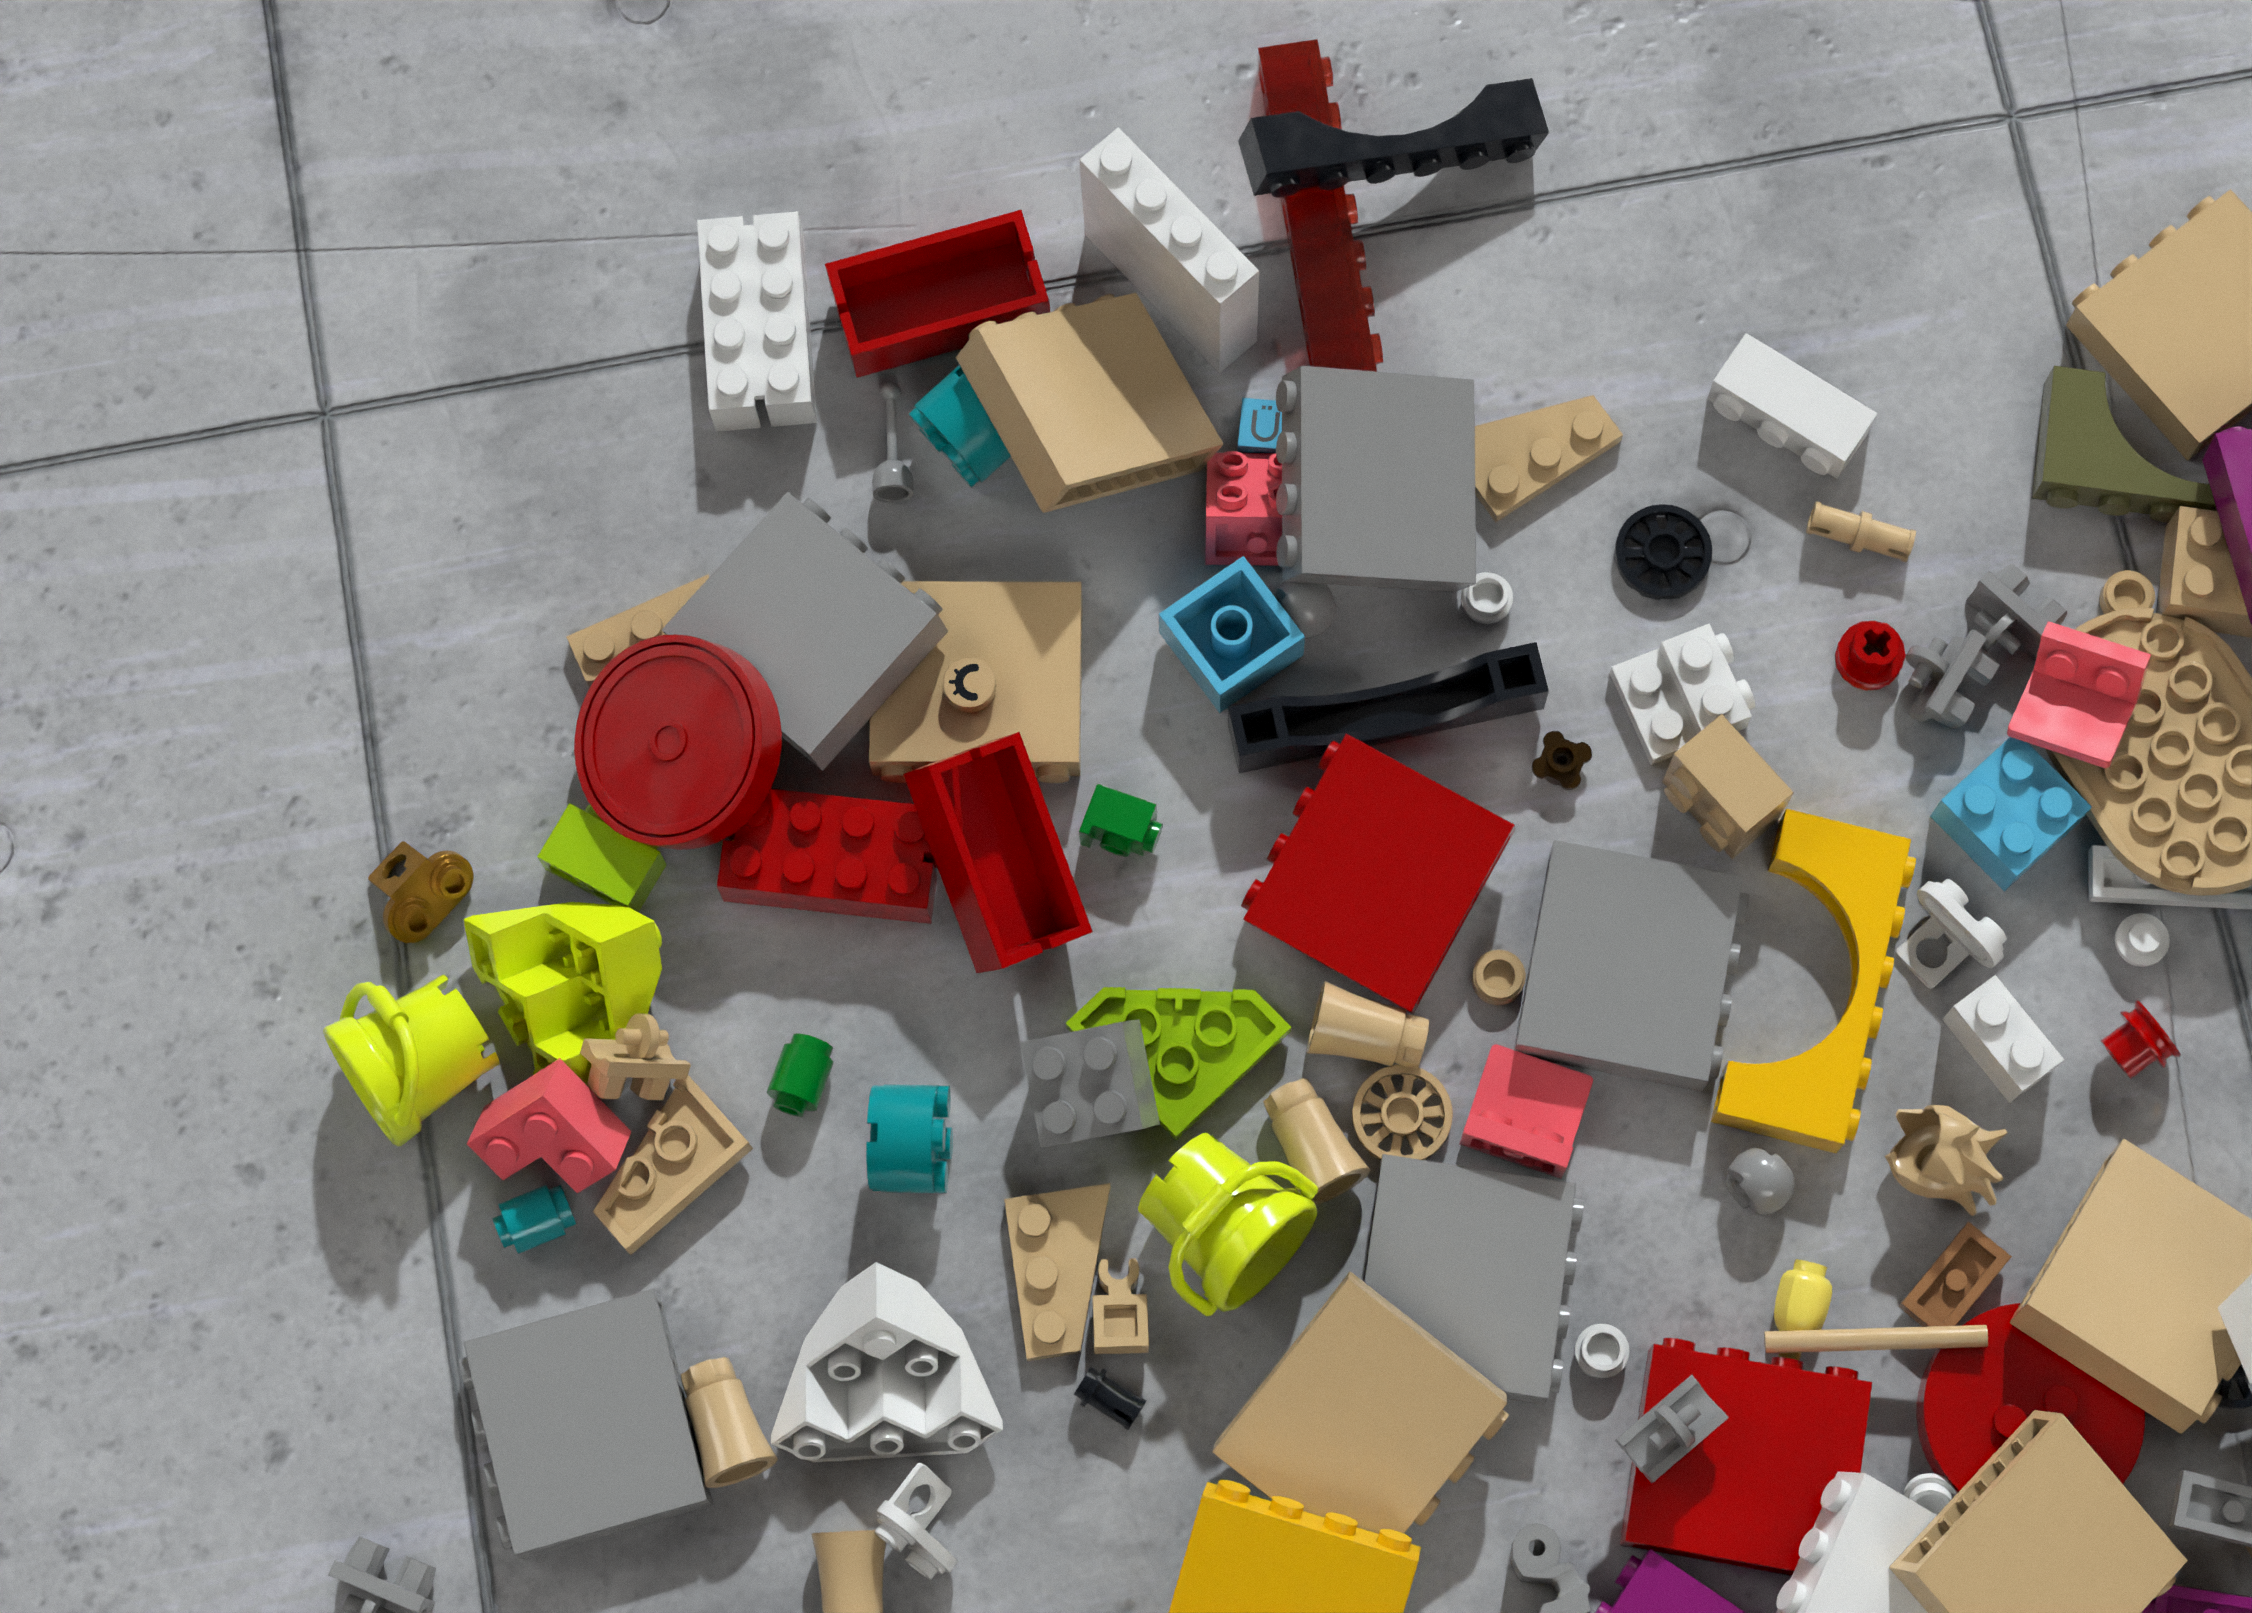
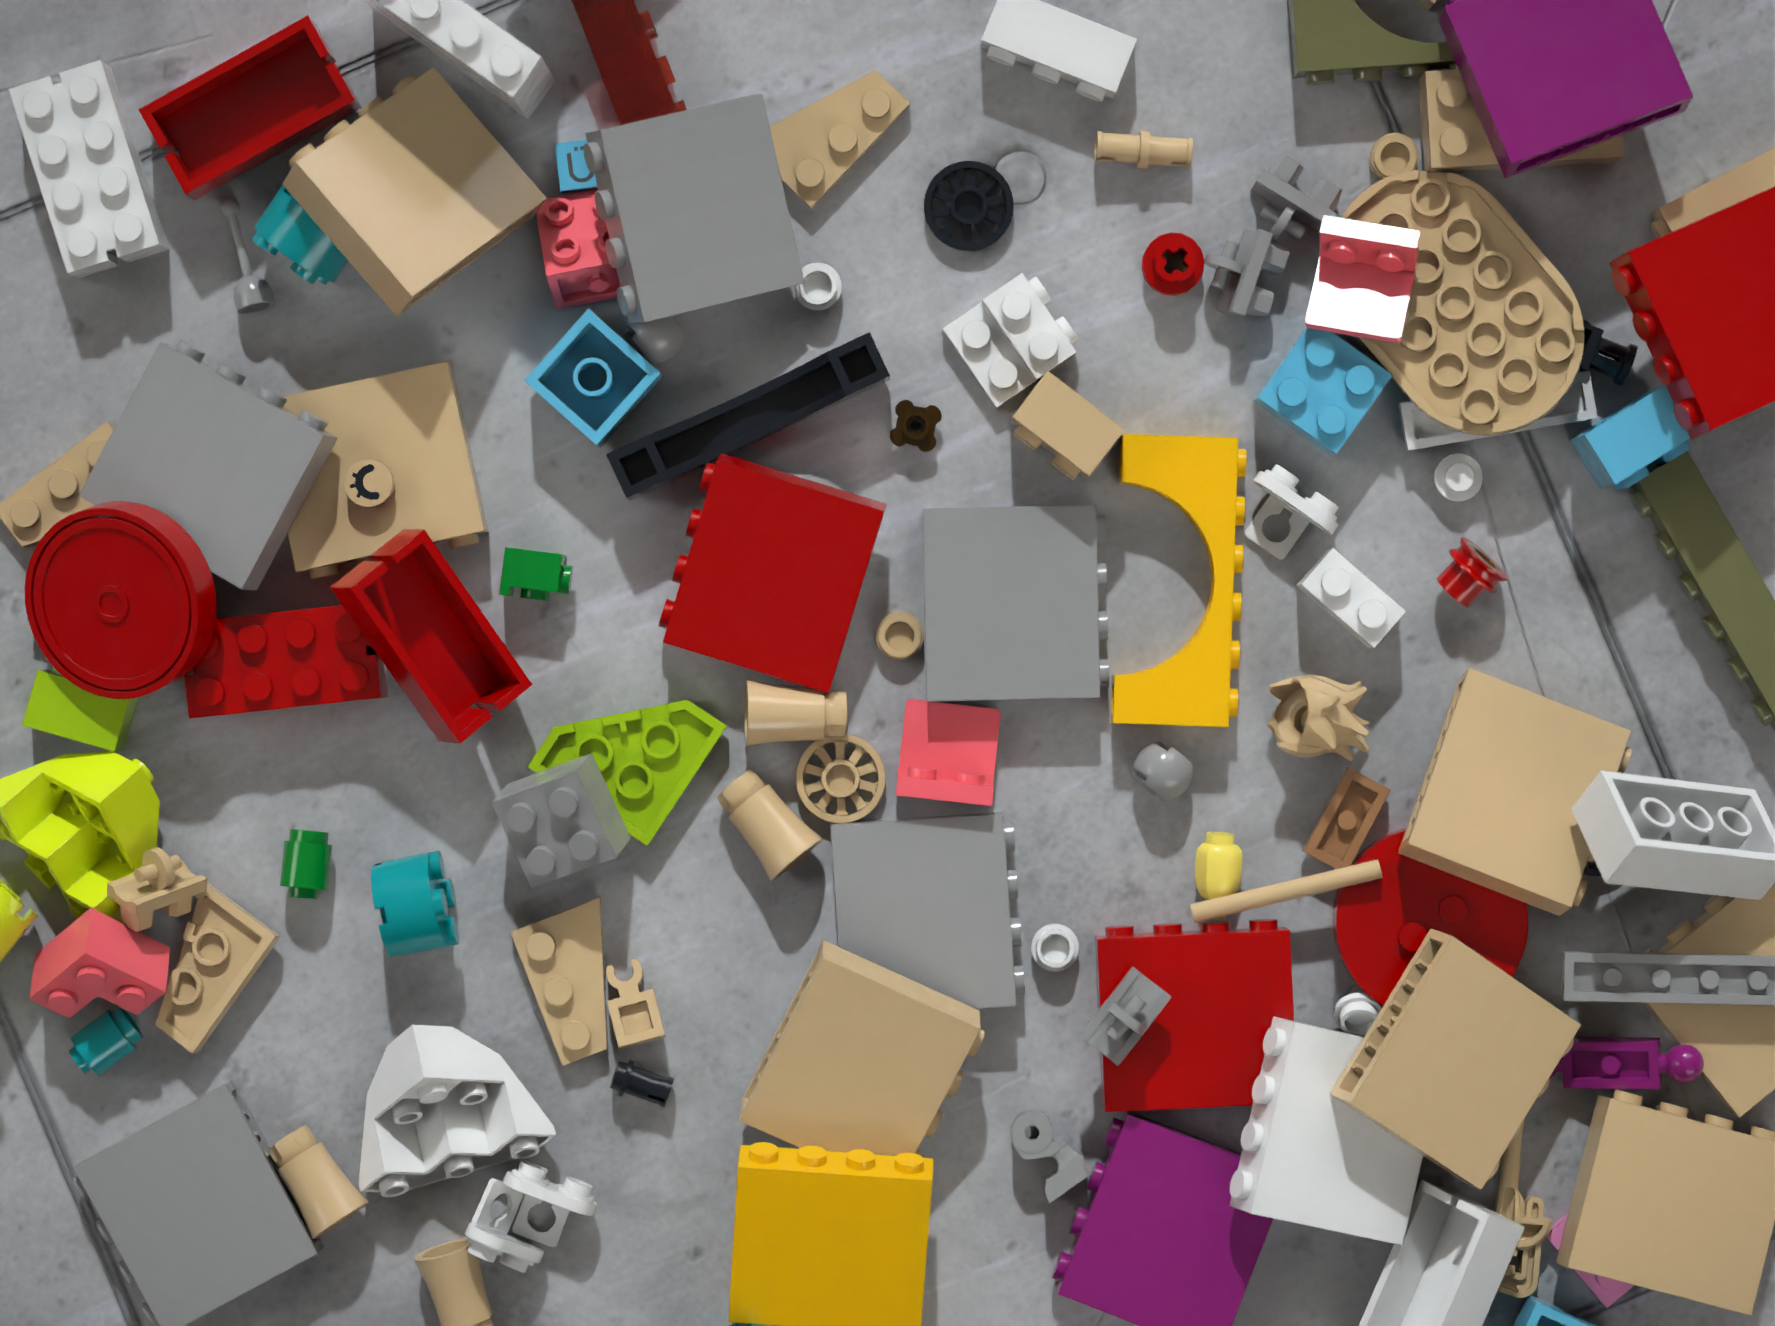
camera: 20 degrees left, 15 degrees up
(995, 1504) = (566, 1197): none -> white bracket
(1227, 1221) = (706, 917): neon yellow piece -> none

